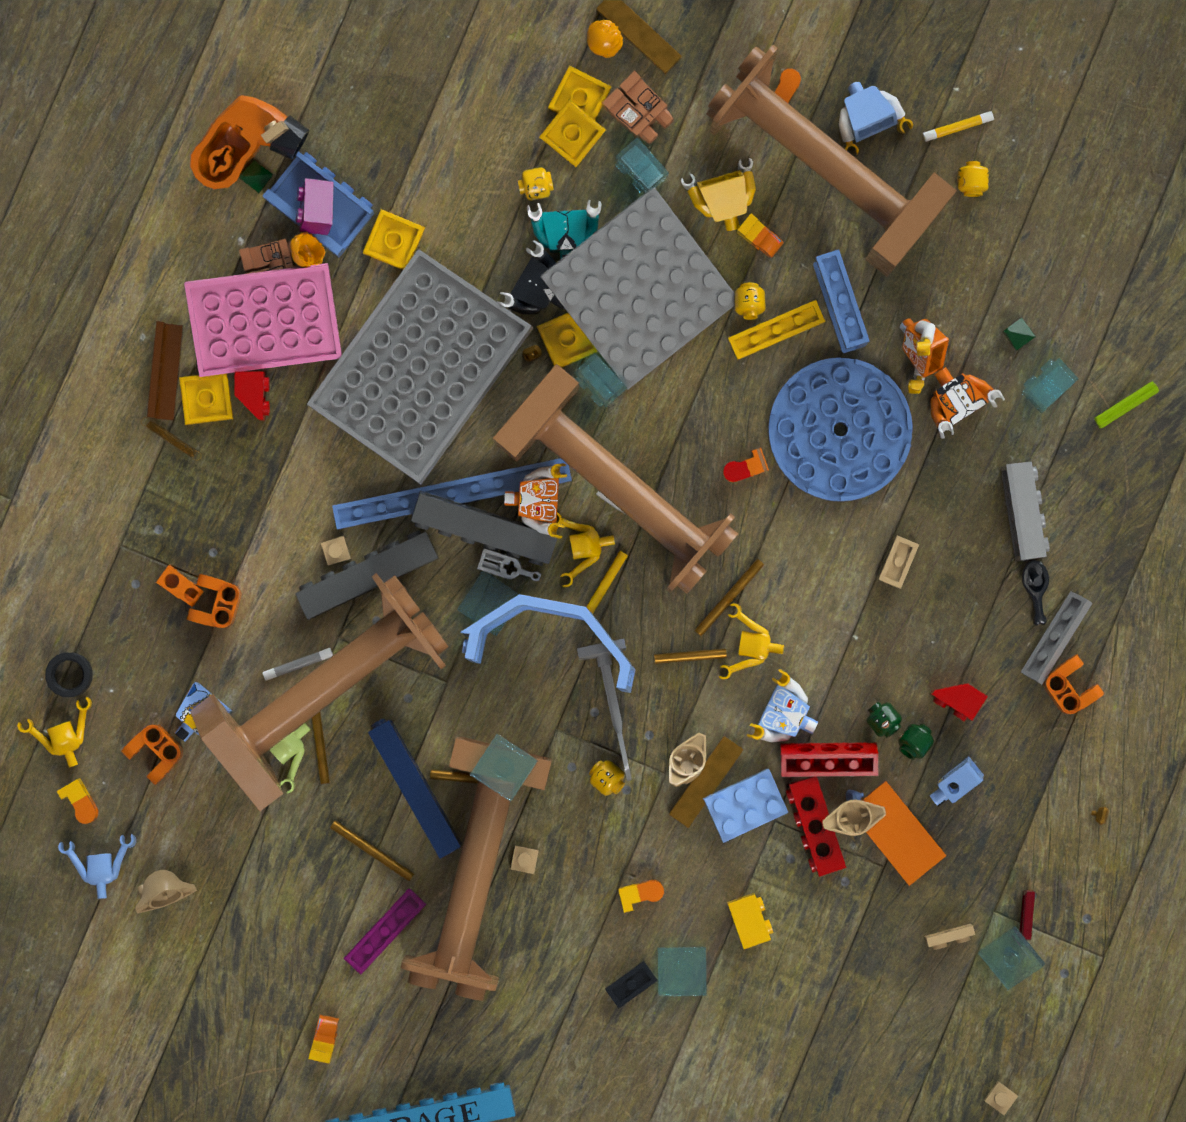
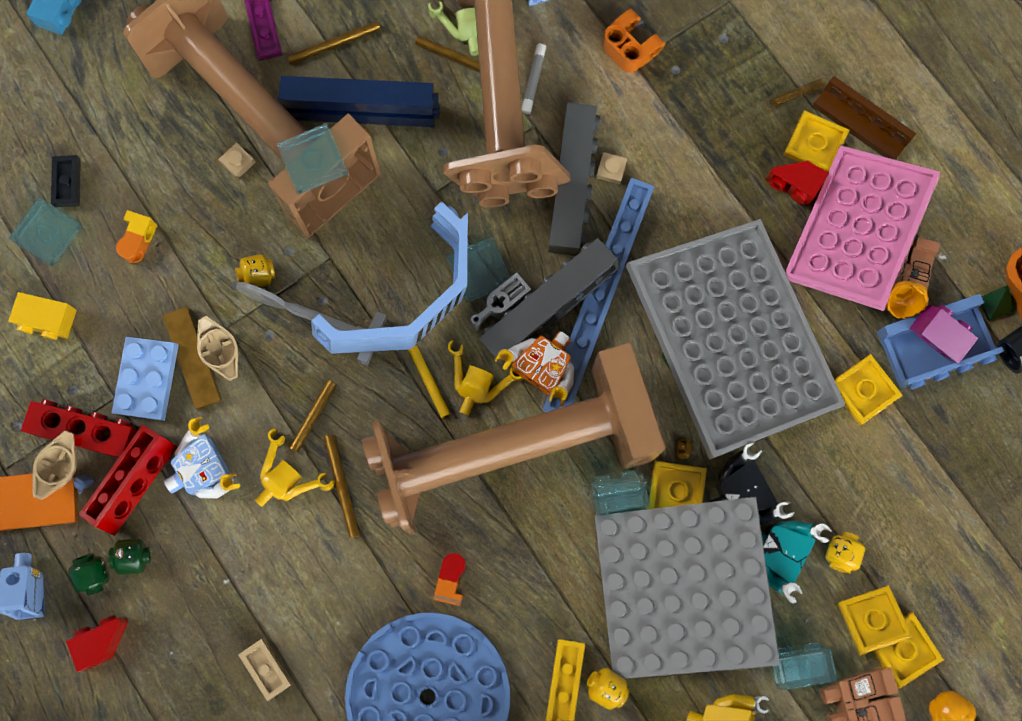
camera: 120 degrees right, 10 degrees down
(180, 586) = (666, 21): orange leg -> none

